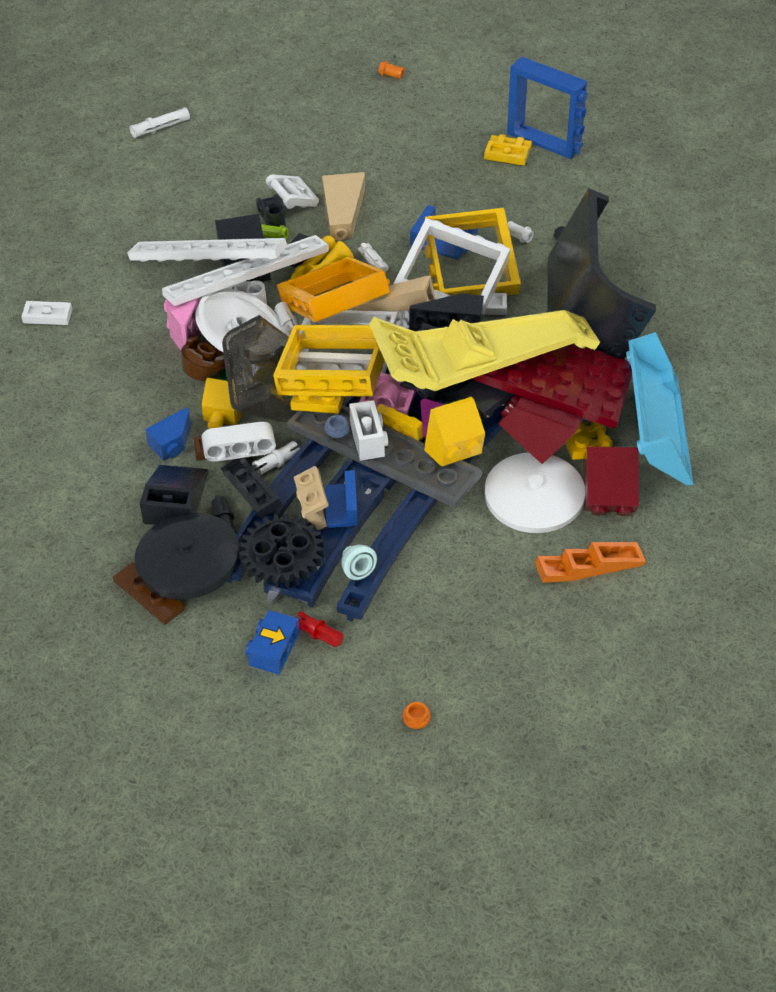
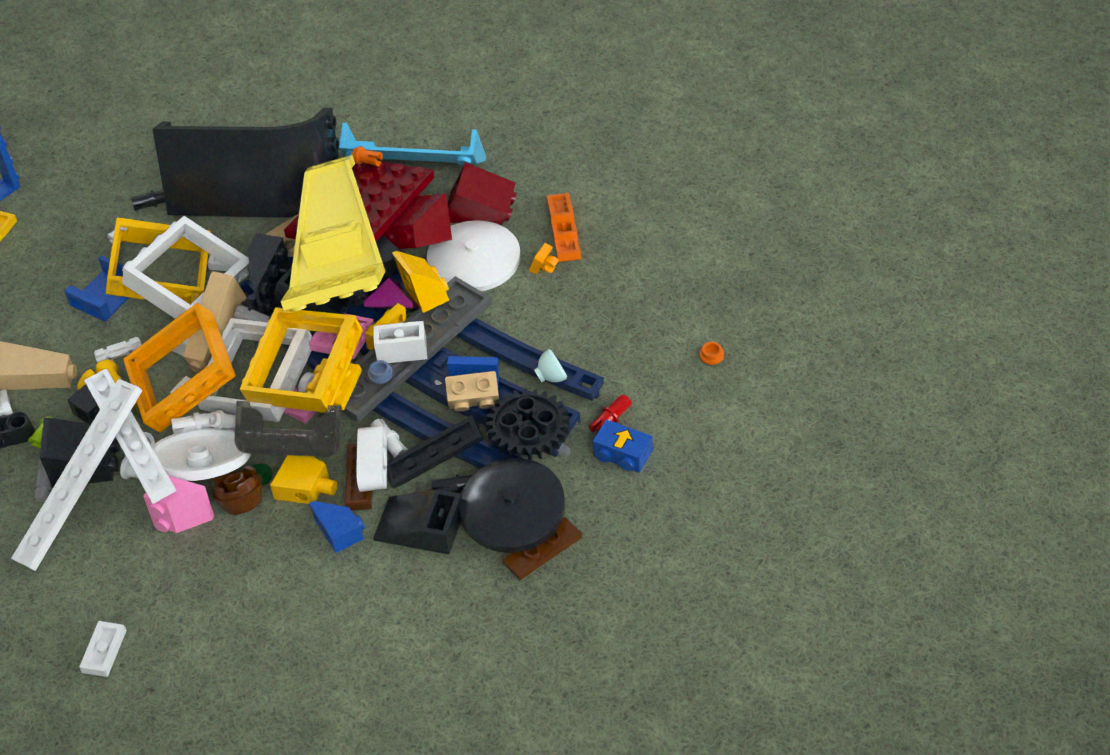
camera: 80 degrees left, 0 degrees up
(531, 546) = (544, 260): none -> light orange tile
(621, 360) = (362, 155): none -> orange pin

